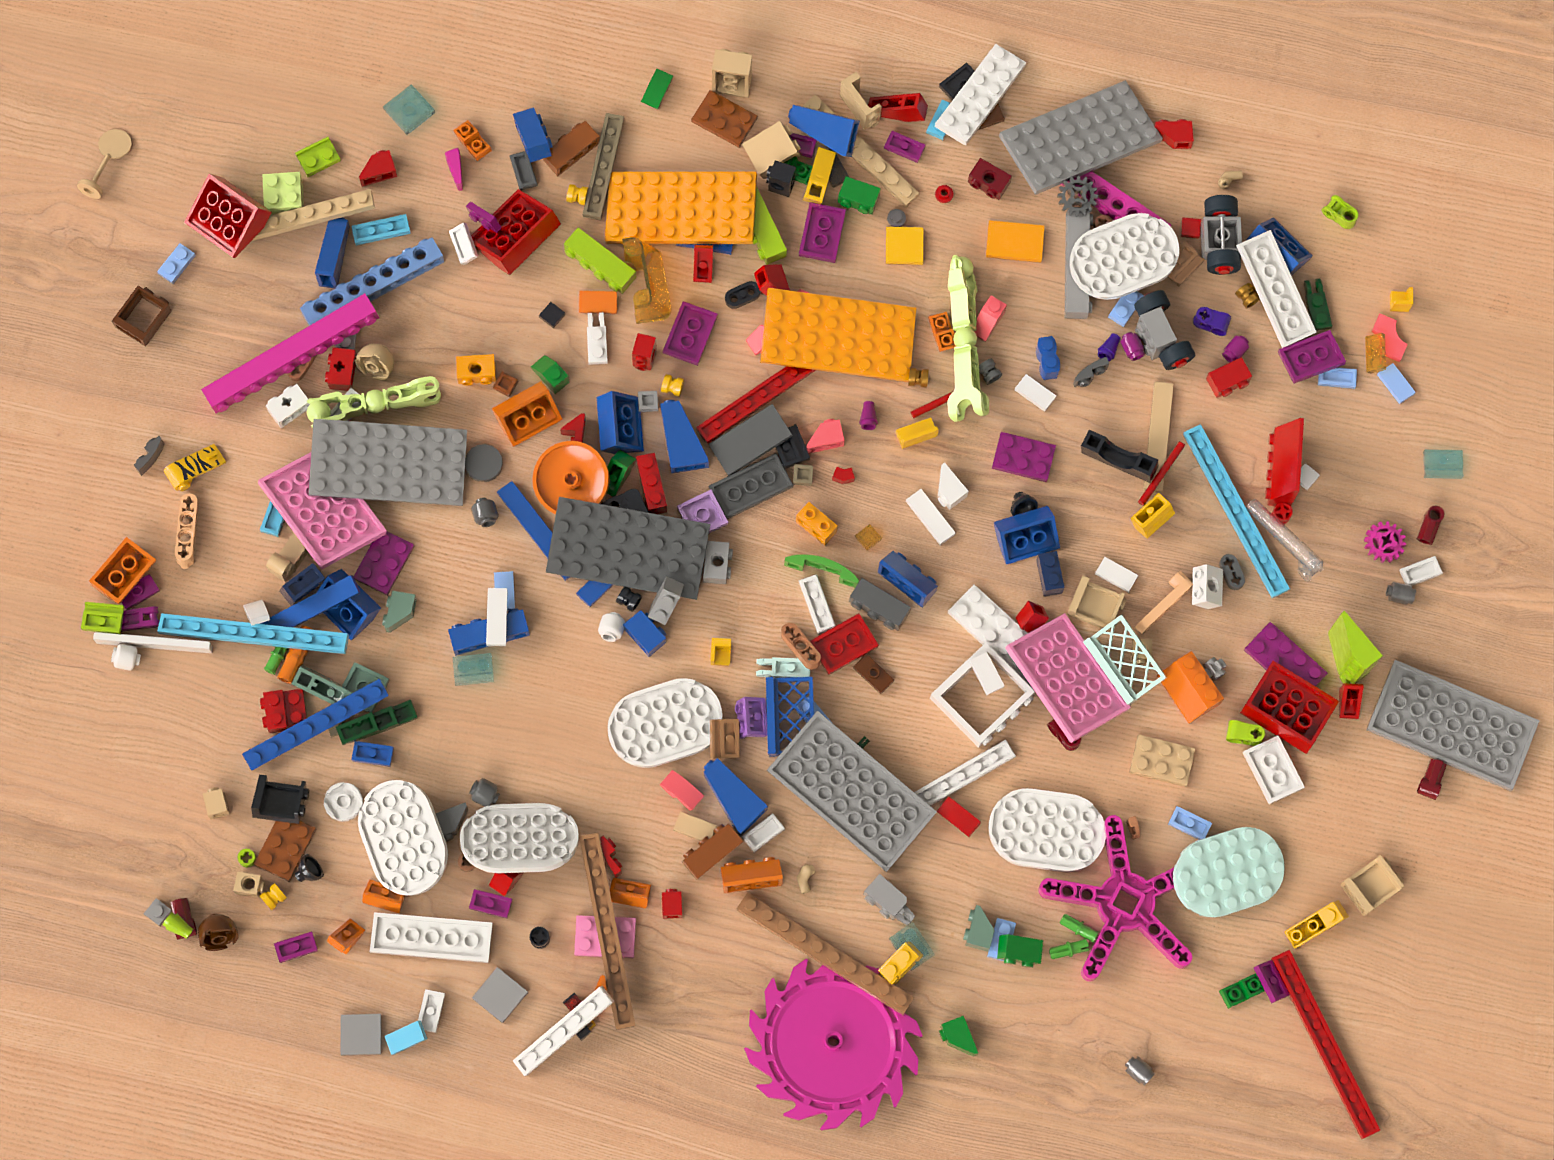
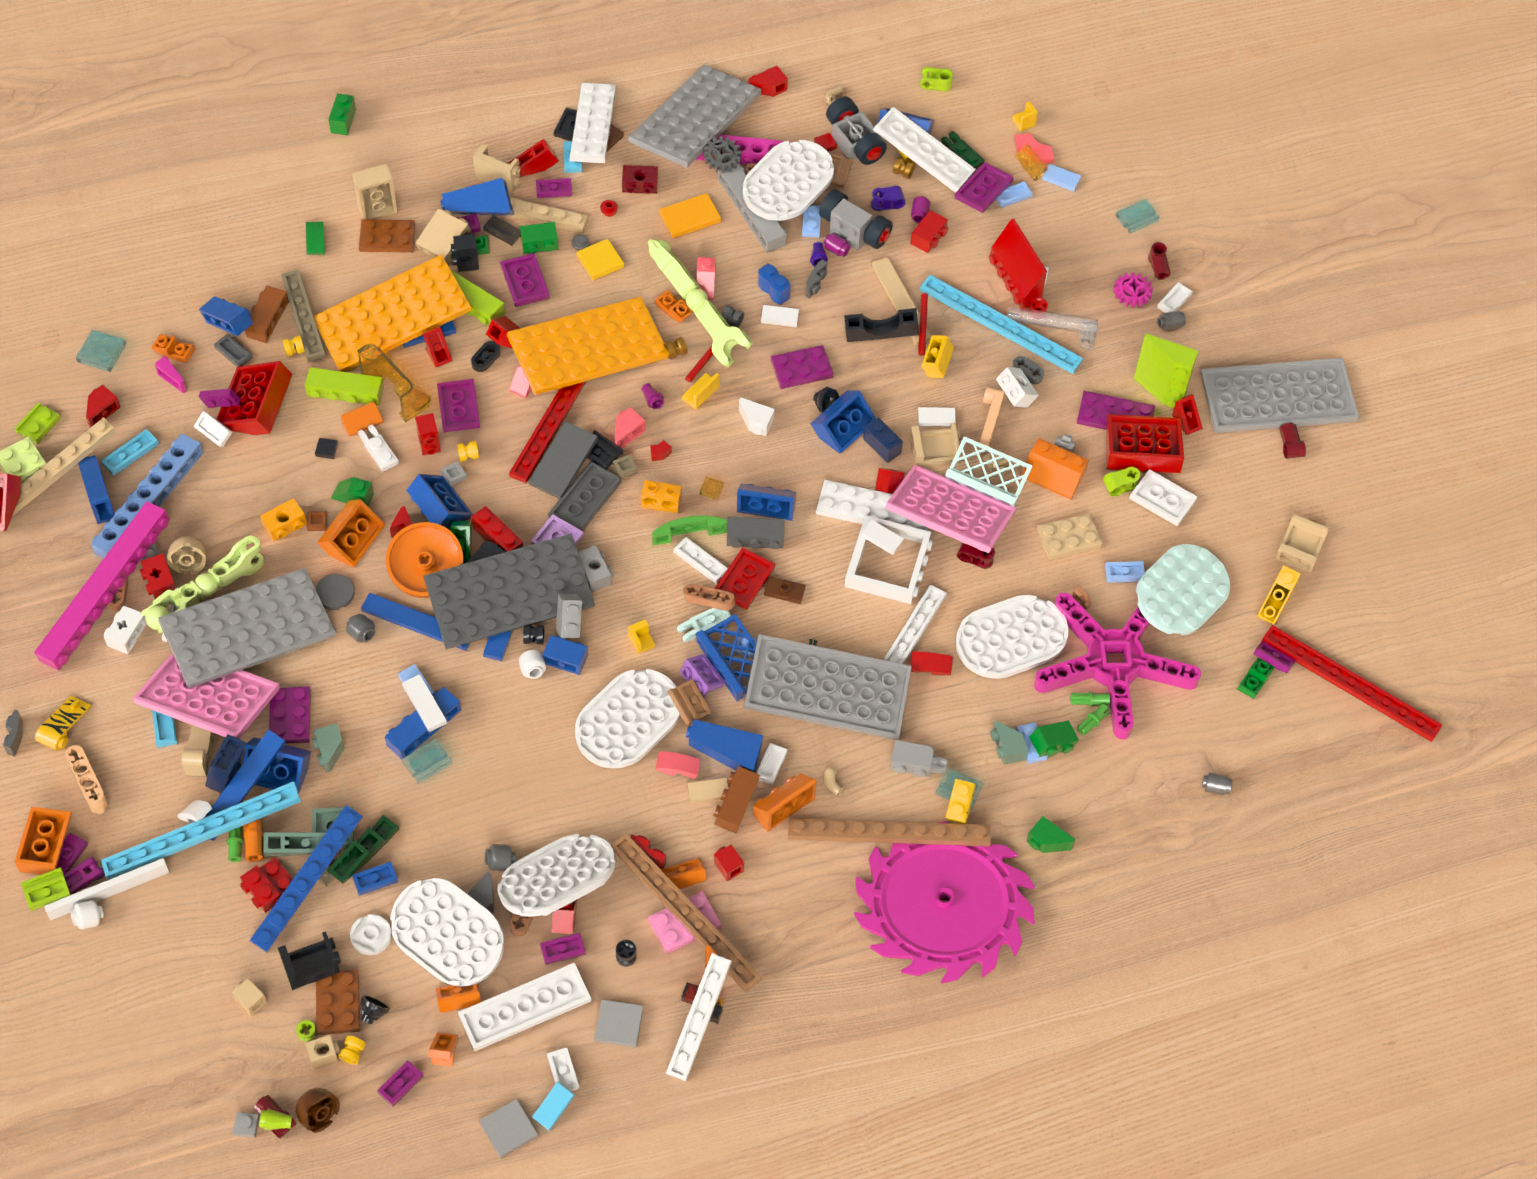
camera: 30 degrees left, 15 degrees down
(682, 443) = (502, 489): blue slope -> none
(819, 176) = (497, 239): yellow slope -> none
(930, 517) = (754, 447): white tile -> none

